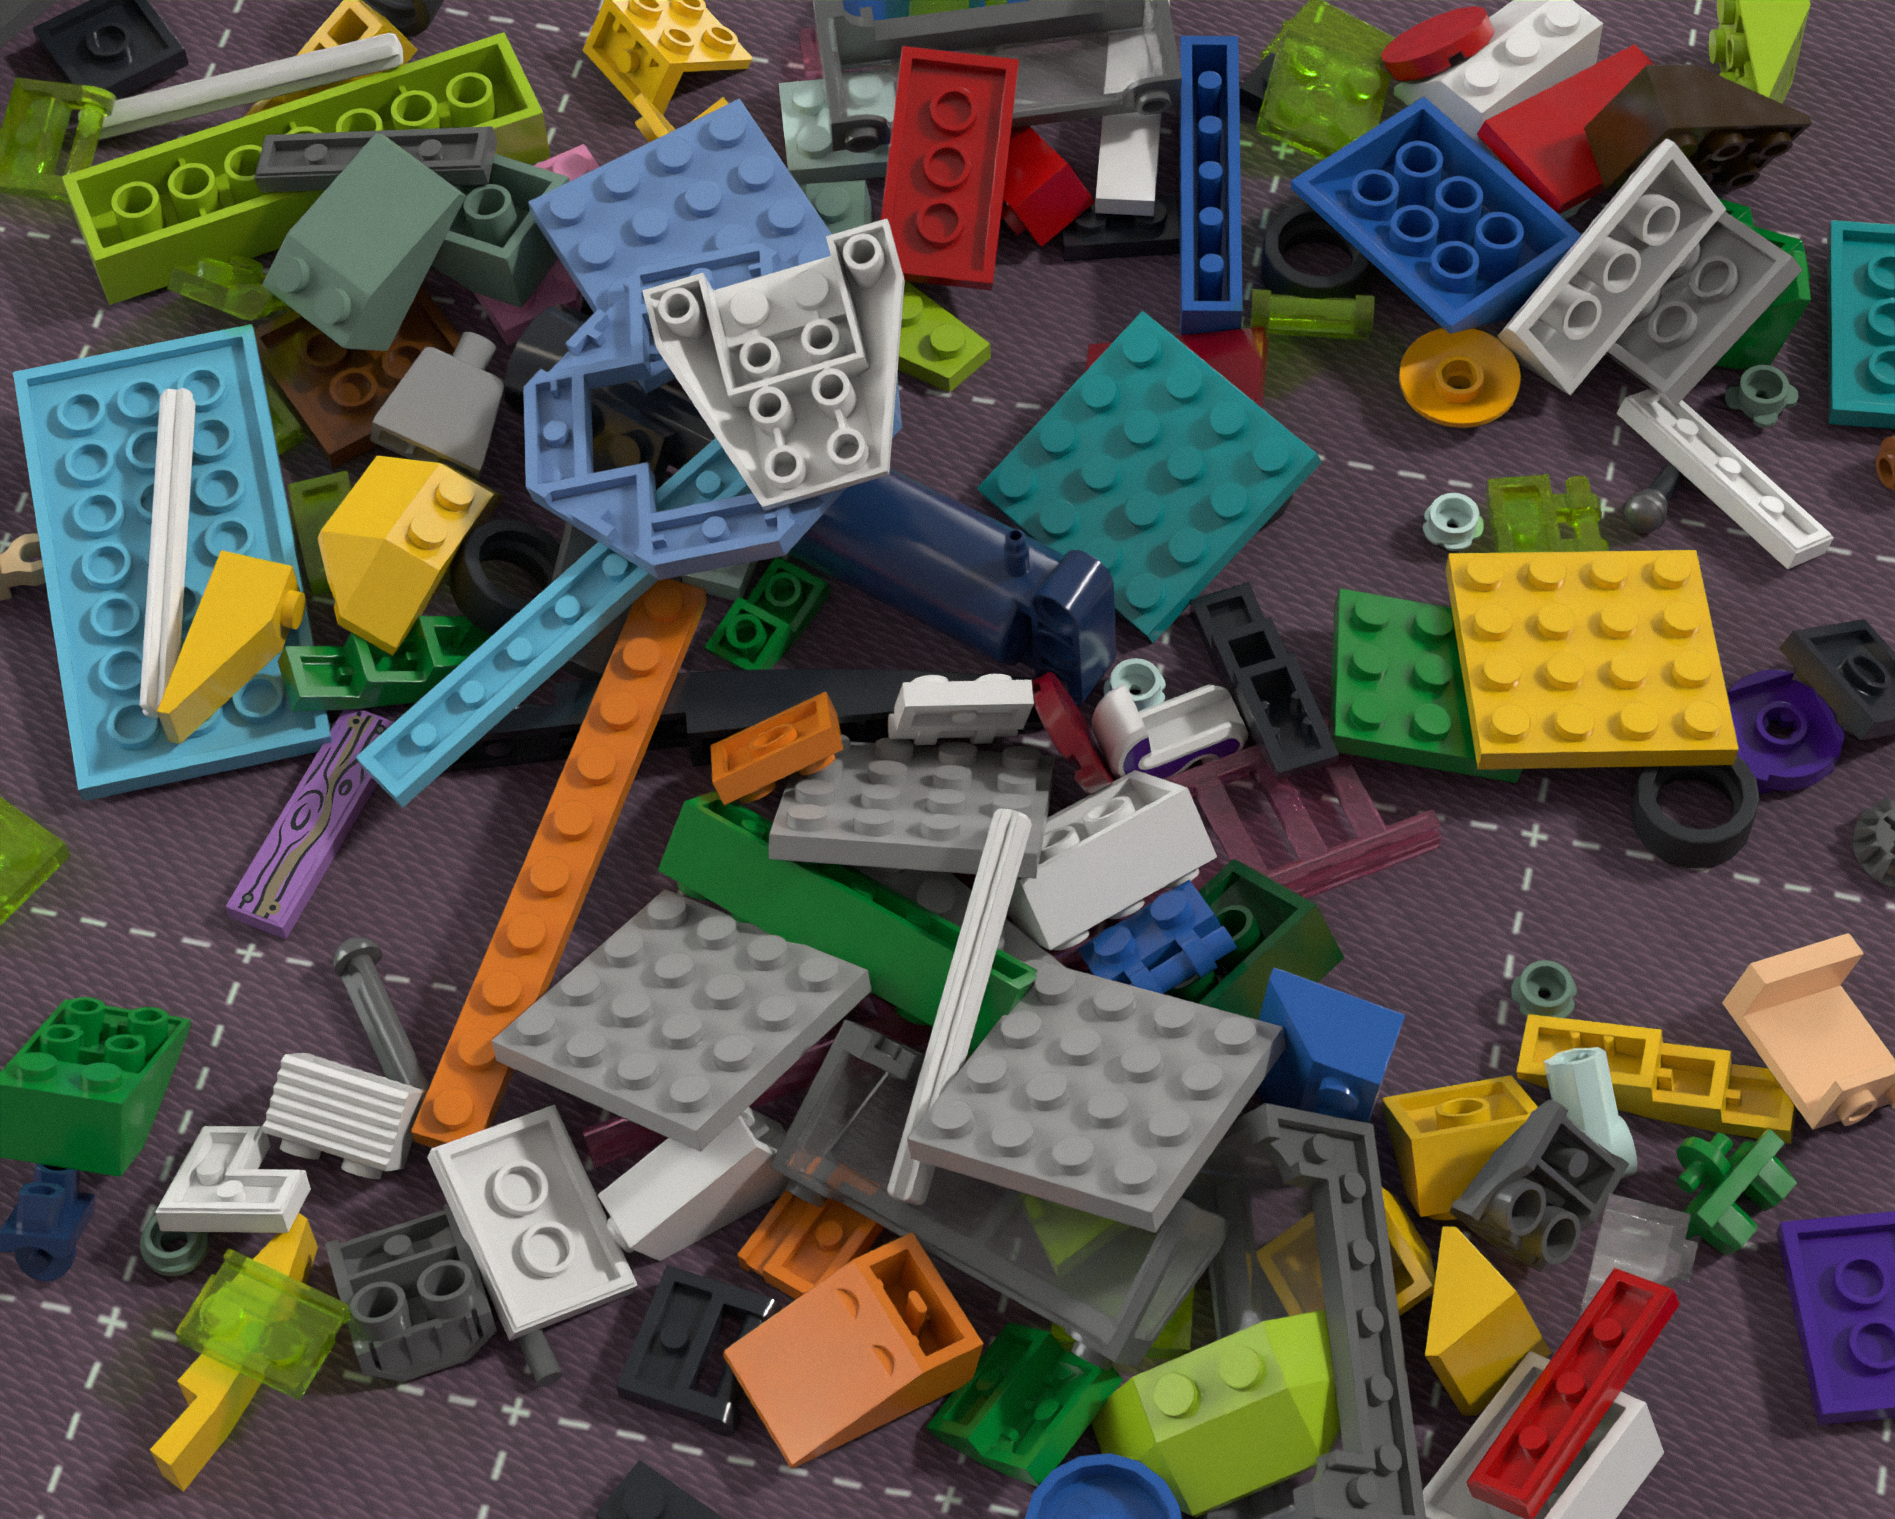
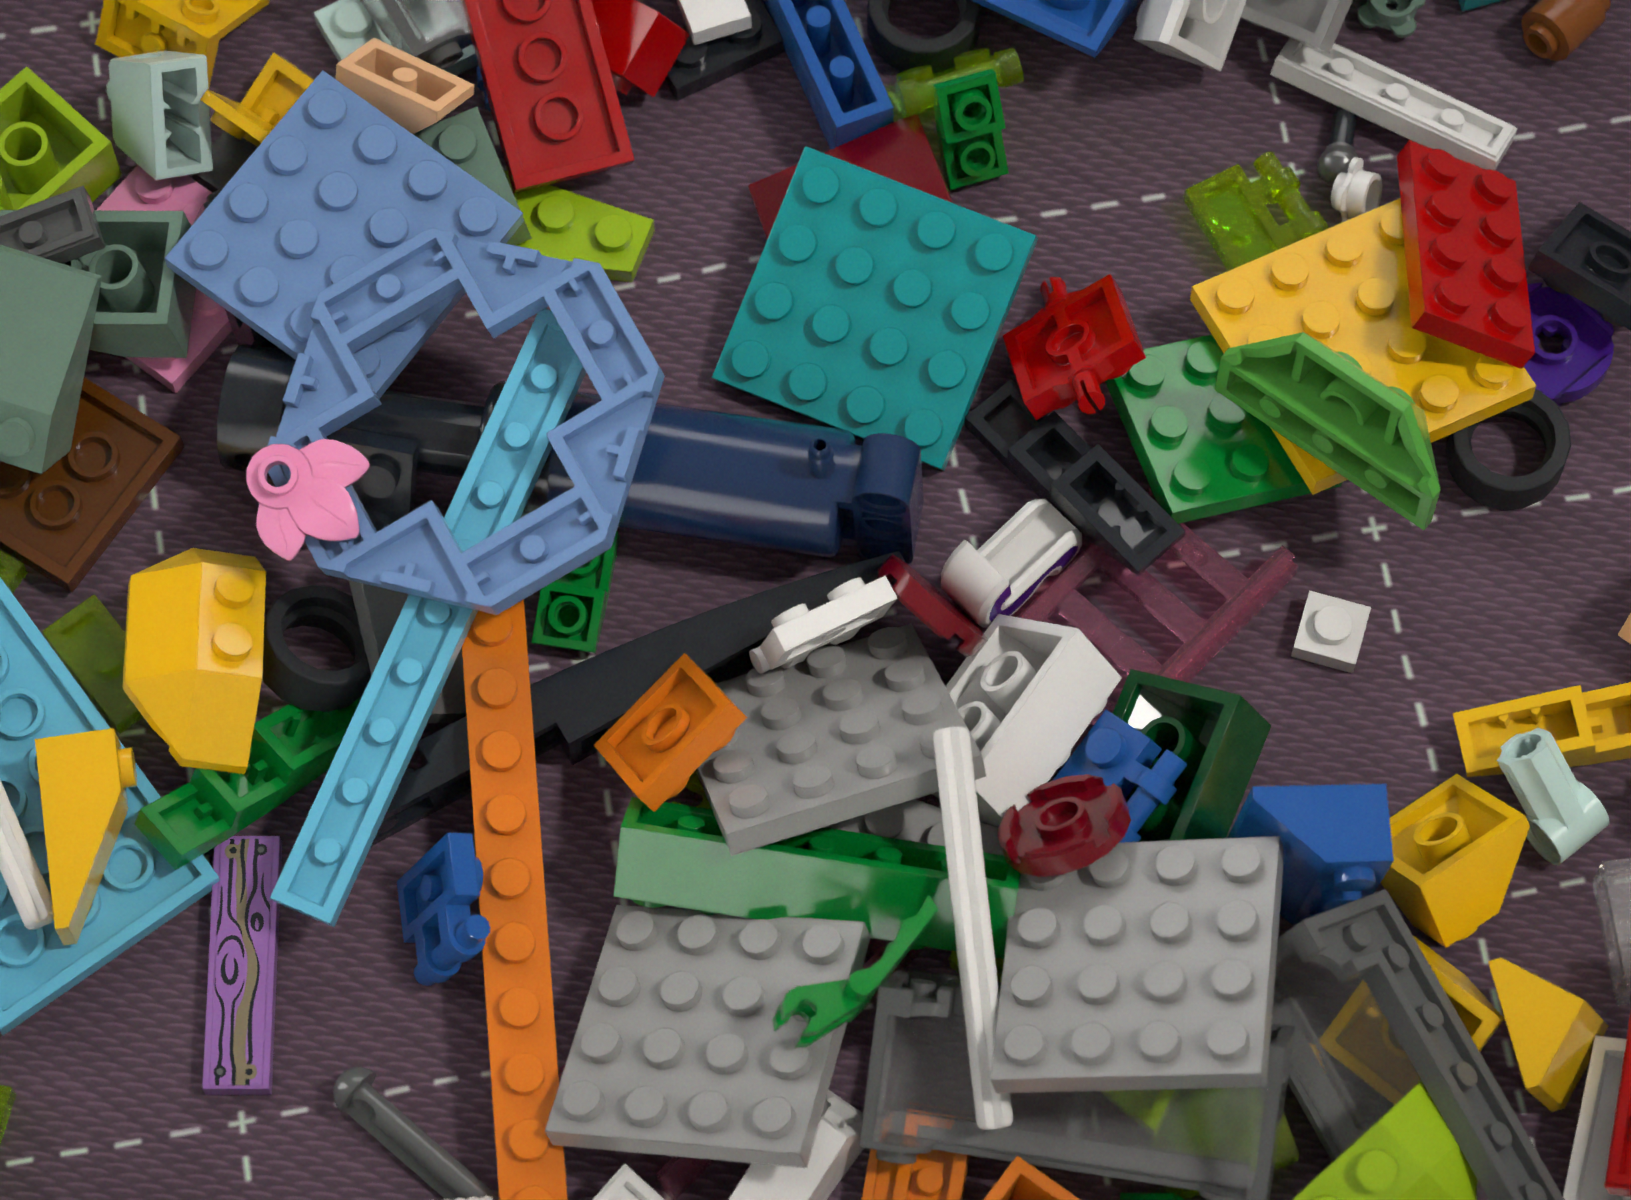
camera: 25 degrees left, 10 degrees up
(444, 407) = (166, 494): light grey torso -> none
(500, 839) = (437, 910): none -> blue plate
(545, 424) = (313, 498): none -> bright pink plate
(601, 105) = (160, 106): none -> light aqua torso
(794, 364) = (542, 355): white wedge -> none
(808, 142) = (402, 85): none -> light nougat slope
(808, 1019) = (833, 1003): none -> green arm
(1093, 955) = (1064, 826): none -> dark red tile
(1138, 675) = (953, 511): light aqua plate -> none
(1307, 356) = (970, 128): none -> green slope
(1315, 566) = (1073, 346): none -> red plate
(1448, 906) = (1331, 631): none -> white plate
(1456, 510) = (1169, 229): light aqua plate -> none
(1463, 360) = (1122, 71): light orange dish -> none
(1519, 691) = (1339, 417): none -> bright green wedge
(1540, 1189) = (1545, 884): dark grey slope -> none
(1547, 977) = (1453, 667): sand green plate -> none
(1651, 531) = (1356, 191): none -> white plate
(1722, 614) = (1464, 254): none -> red plate

